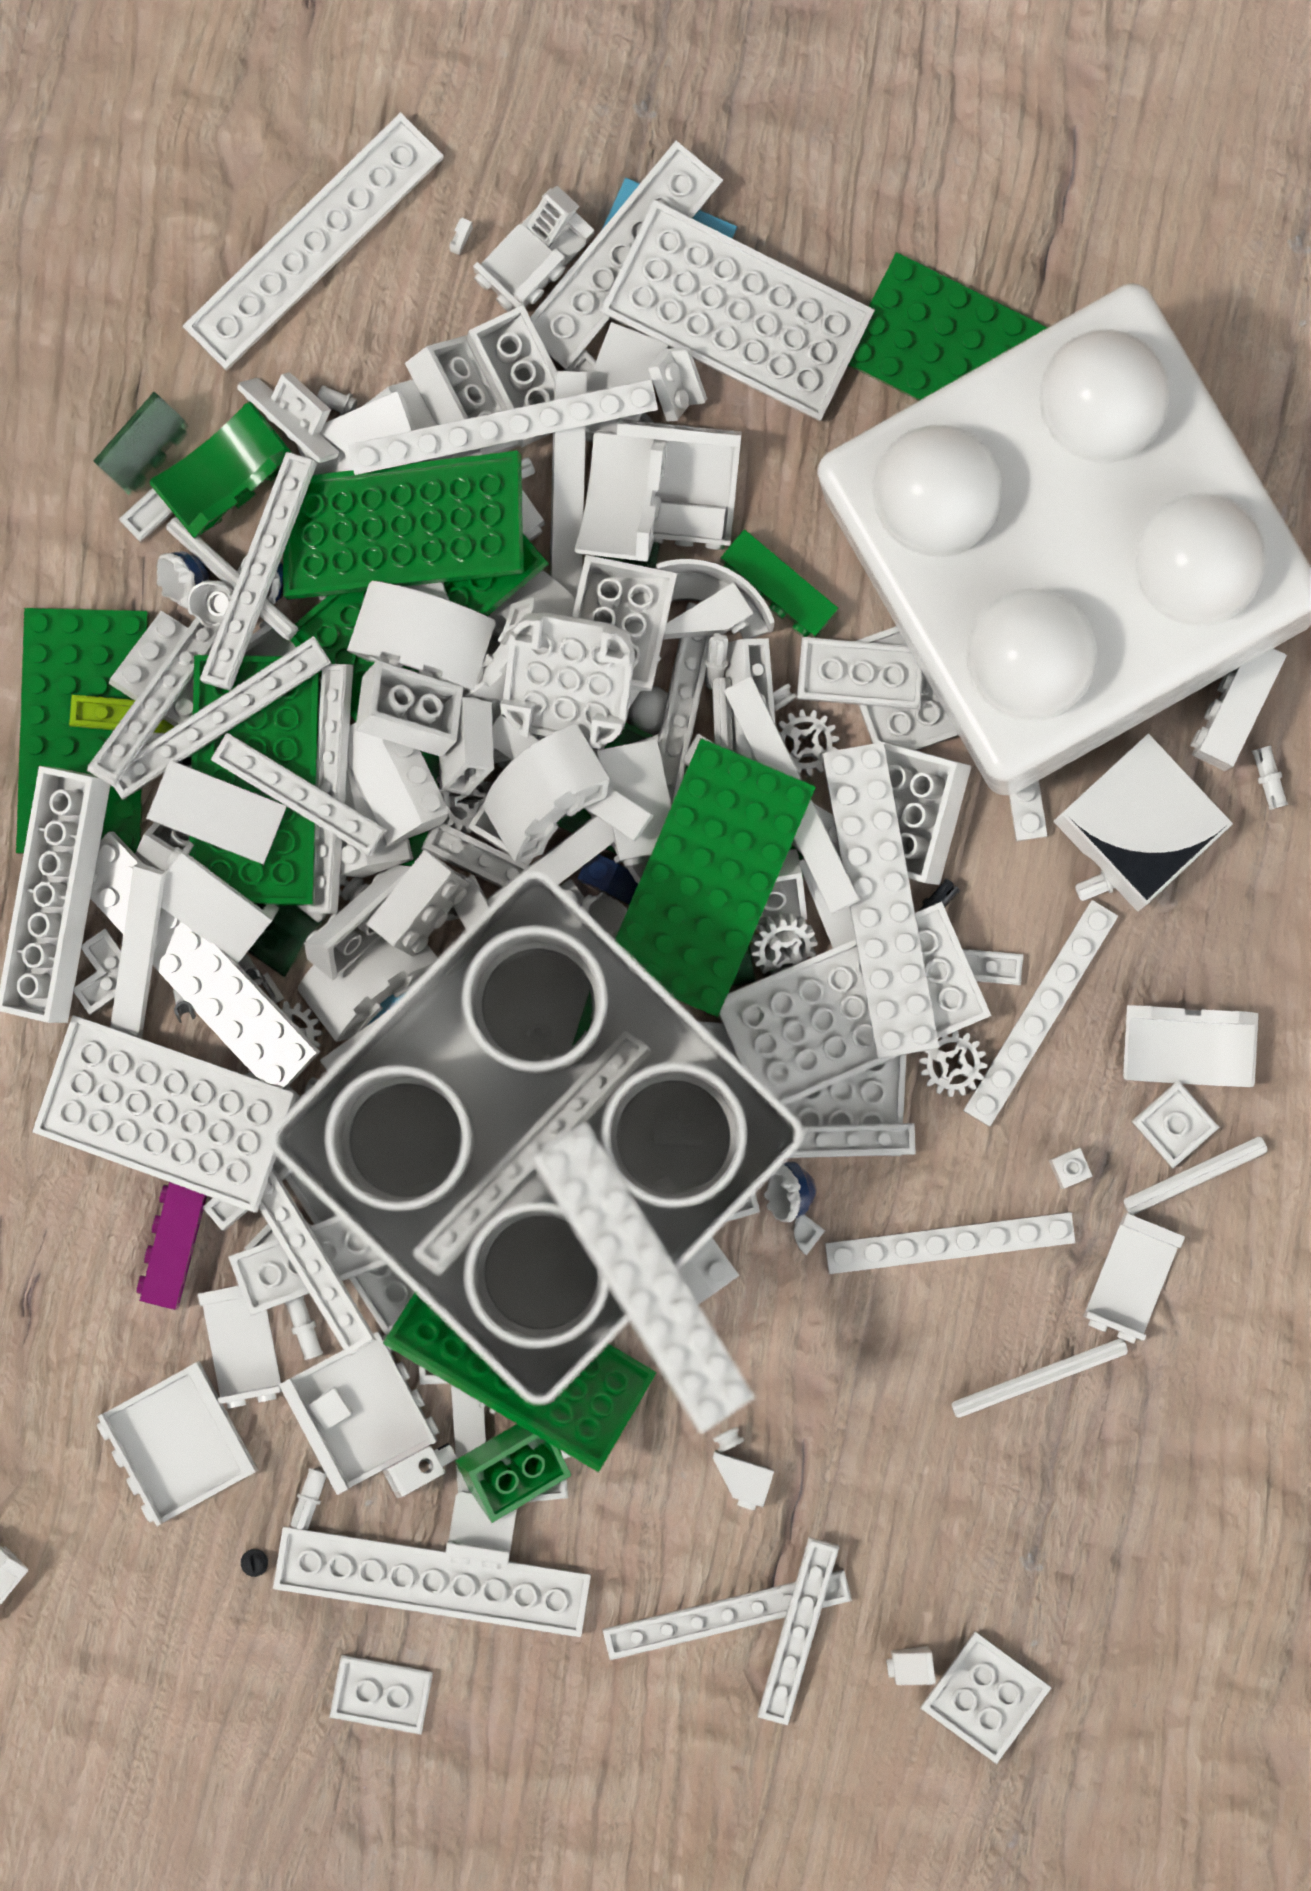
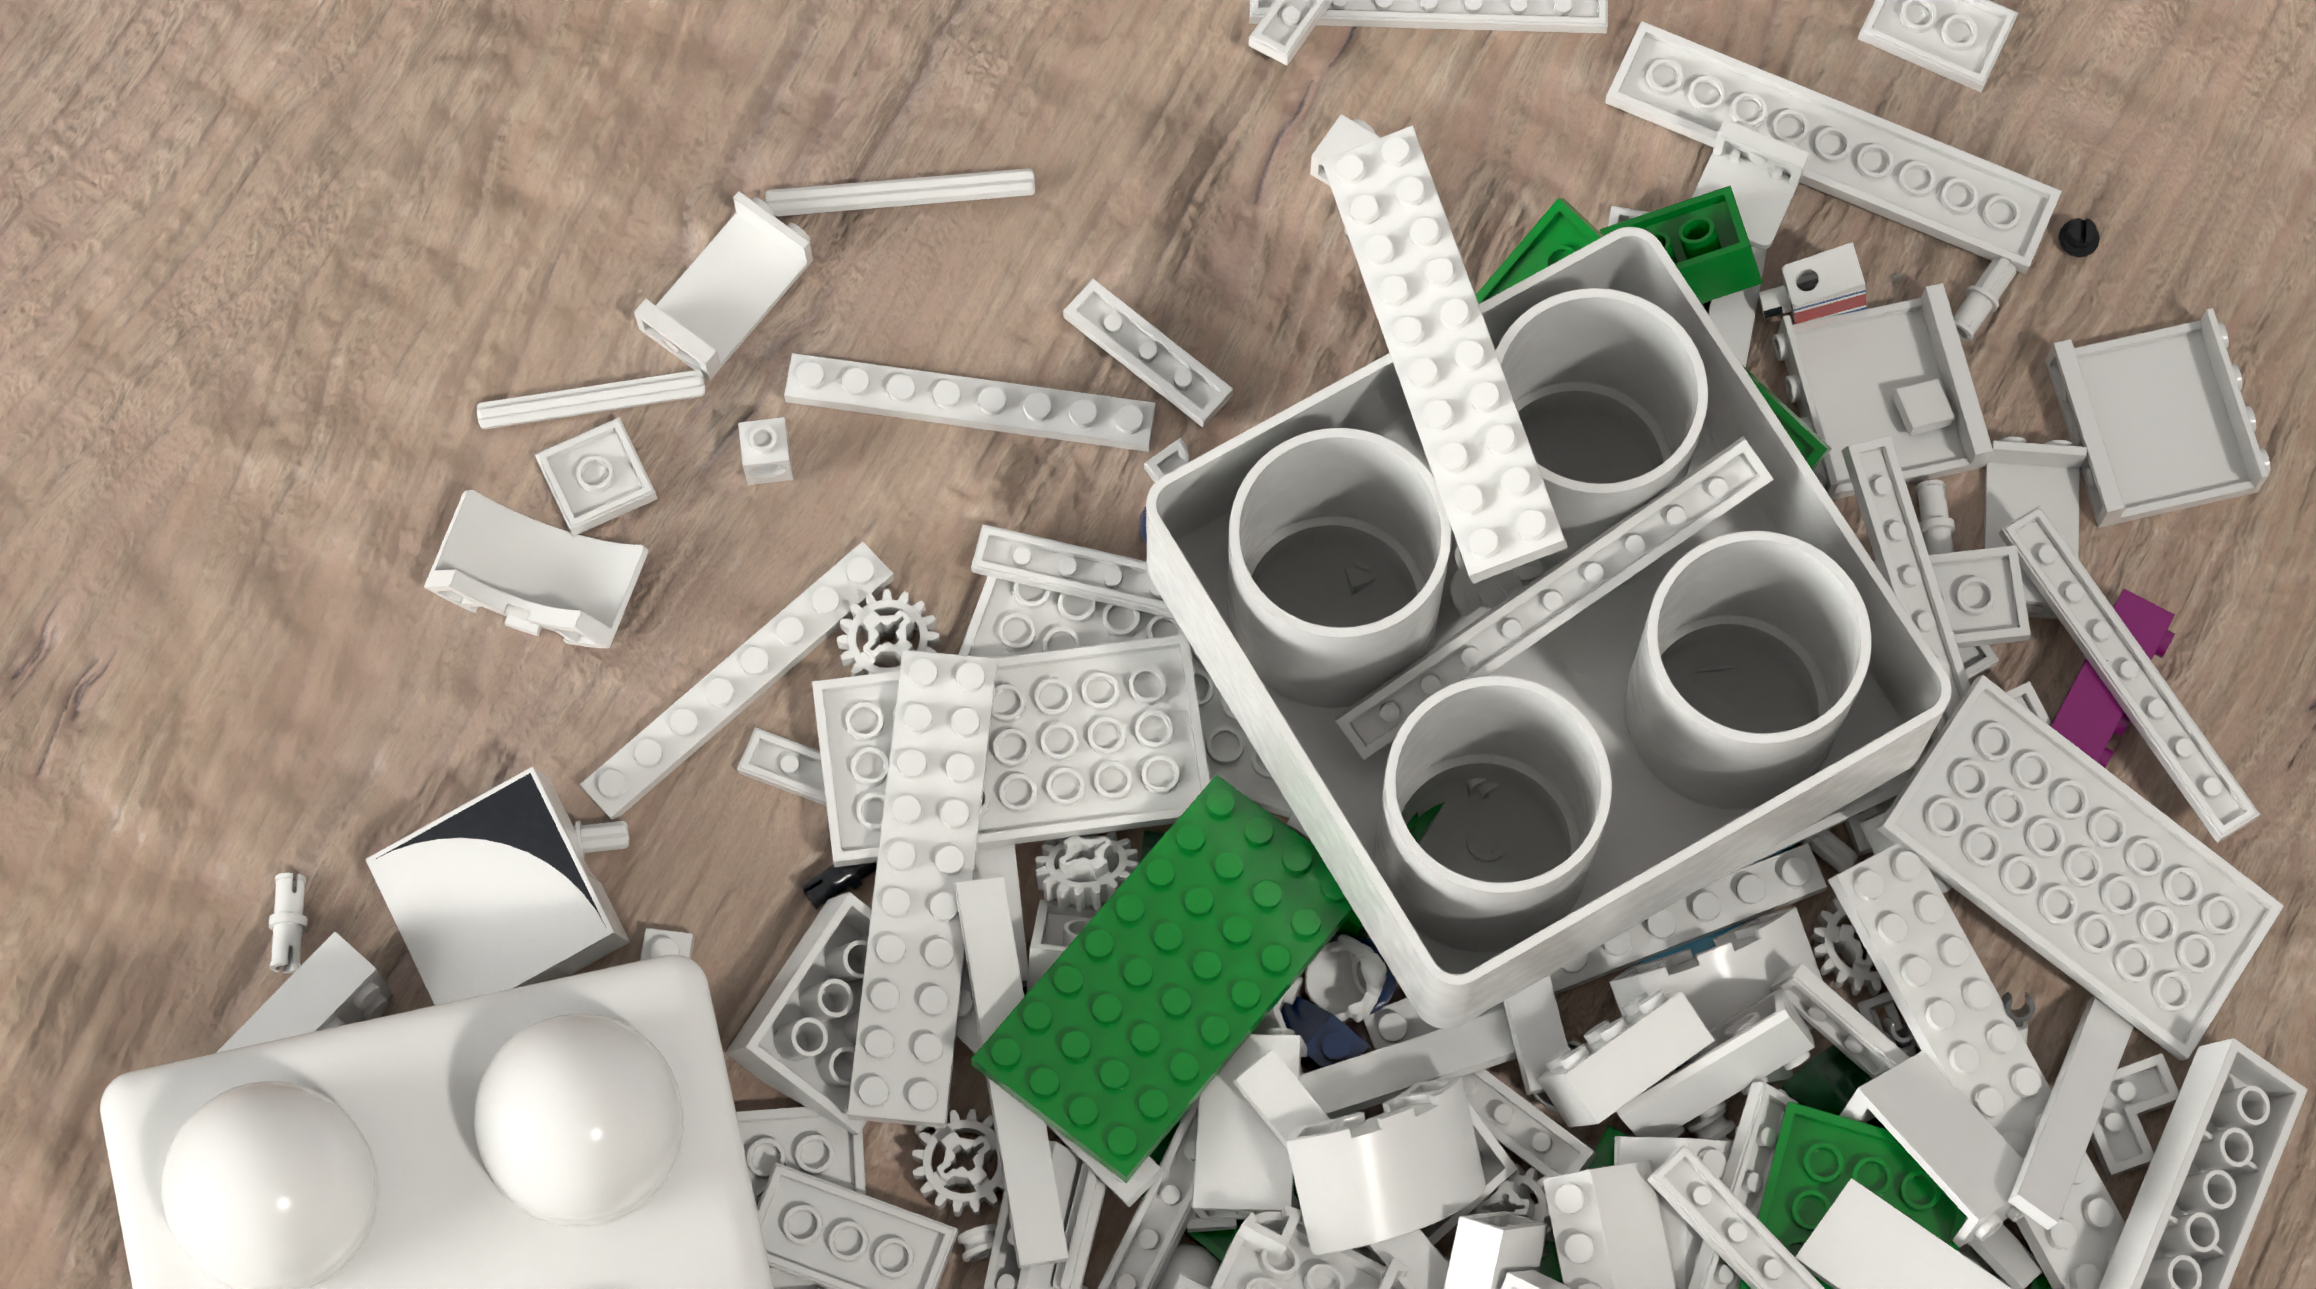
camera: 165 degrees left, 15 degrees down
(161, 1251) = (2129, 675): none -> white tile
(292, 971) = (1839, 1021): none -> white tile
(844, 1307) = (1148, 353): none -> white plate

